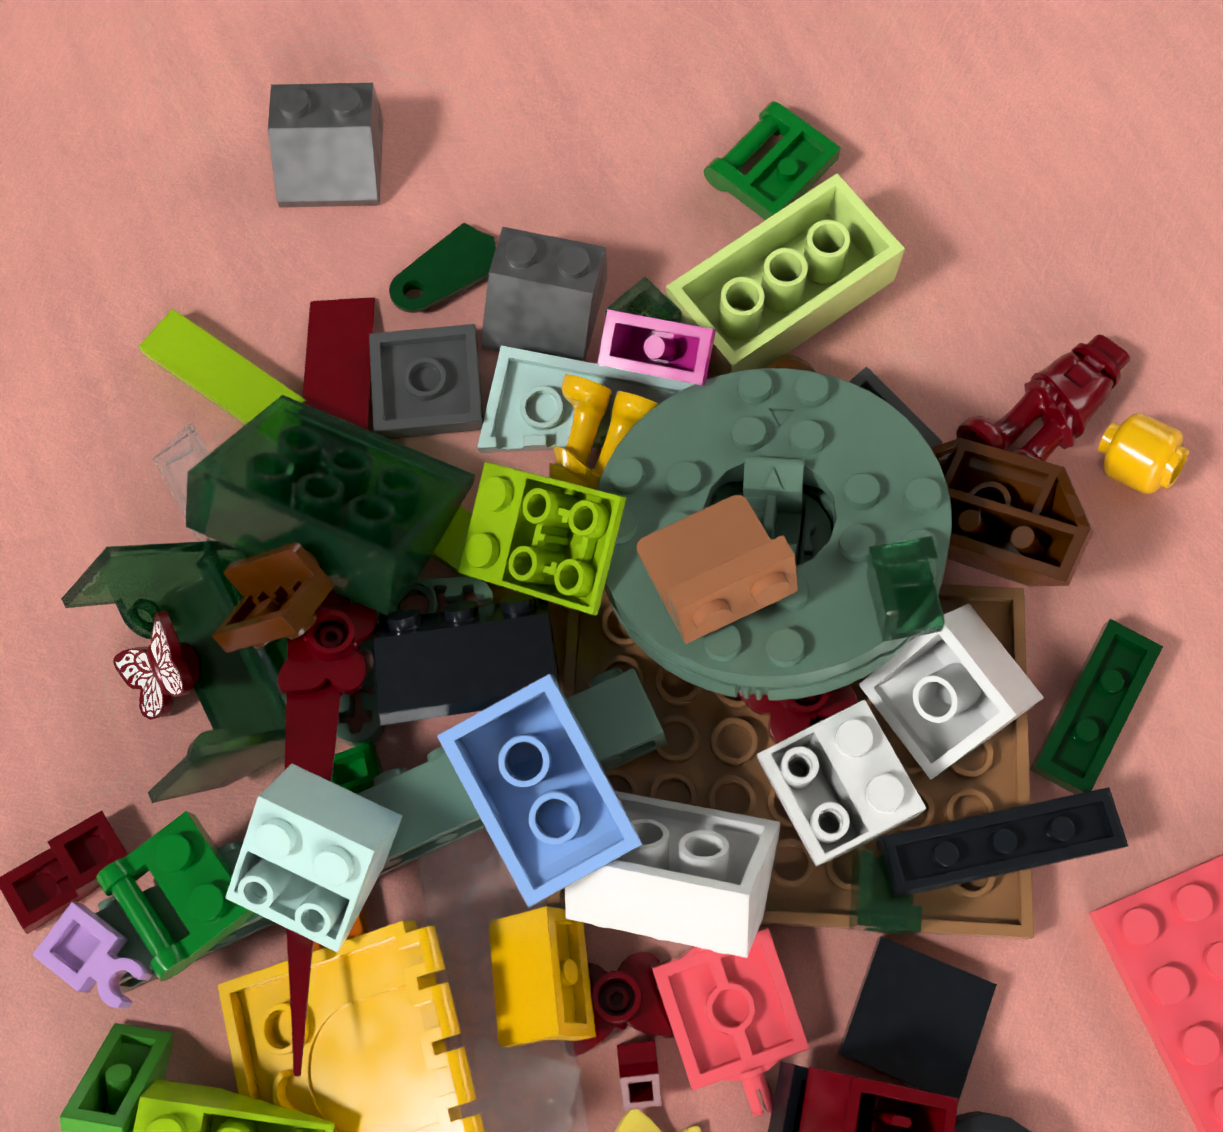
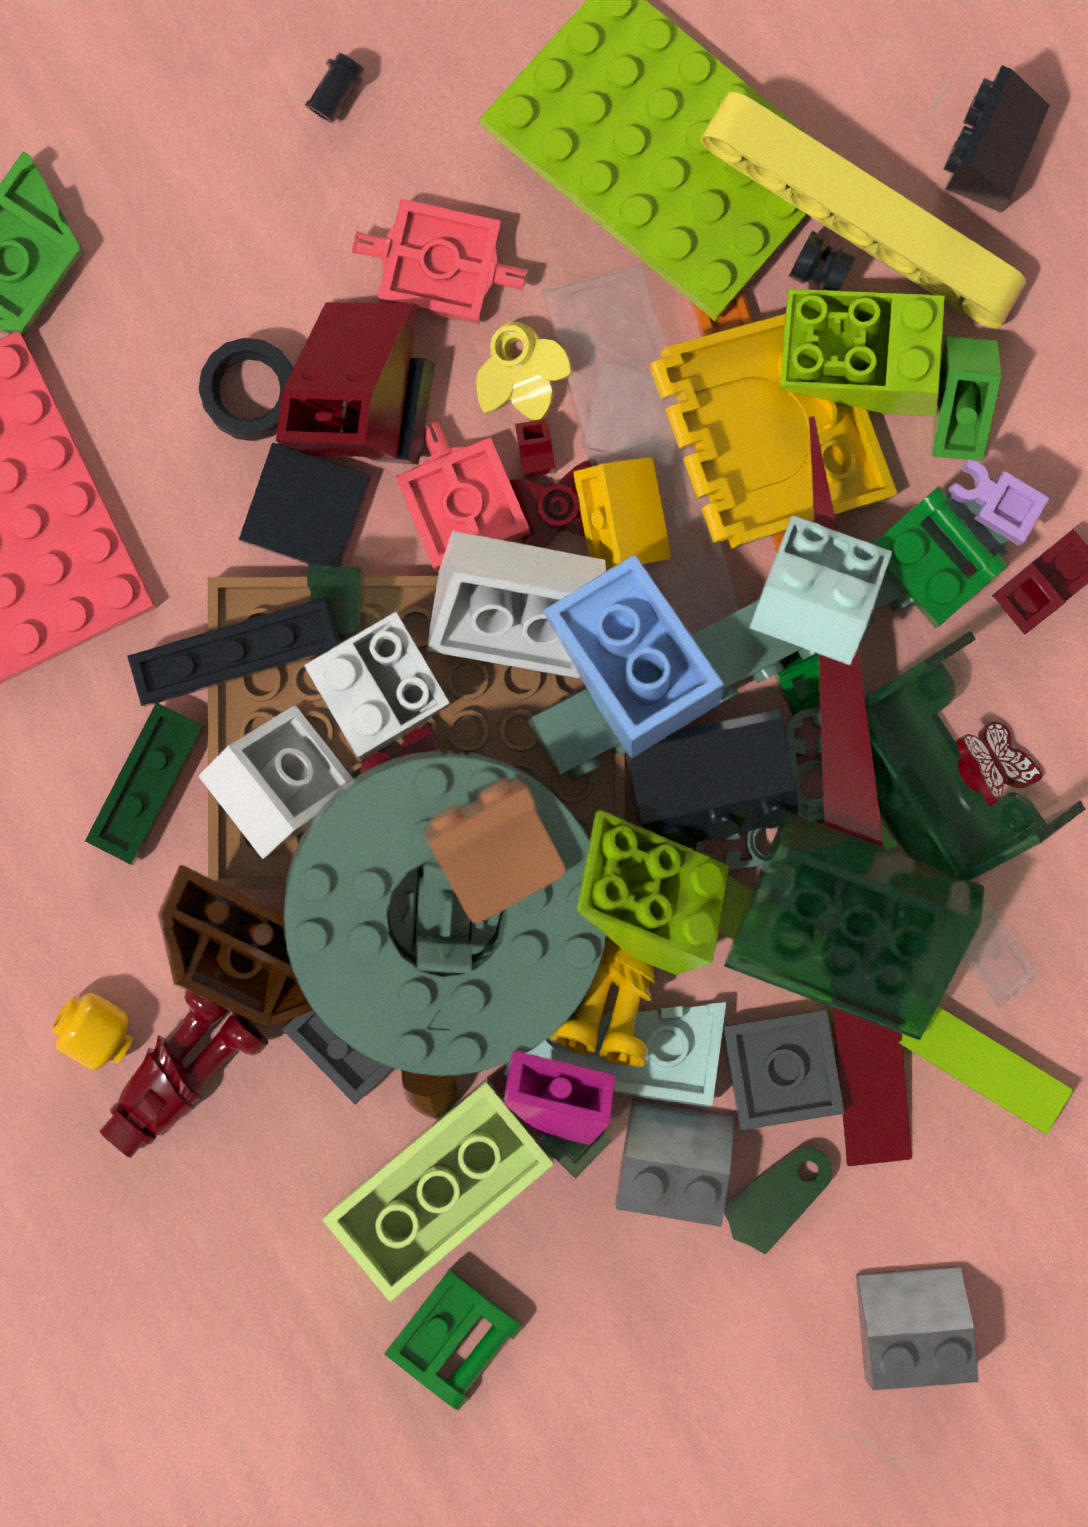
camera: 170 degrees right, 15 degrees up
(278, 600) = (888, 814): reddish brown bracket -> none
(330, 650) = (836, 785): dark red animal -> none
(904, 588) = (327, 834): clear green panel -> none

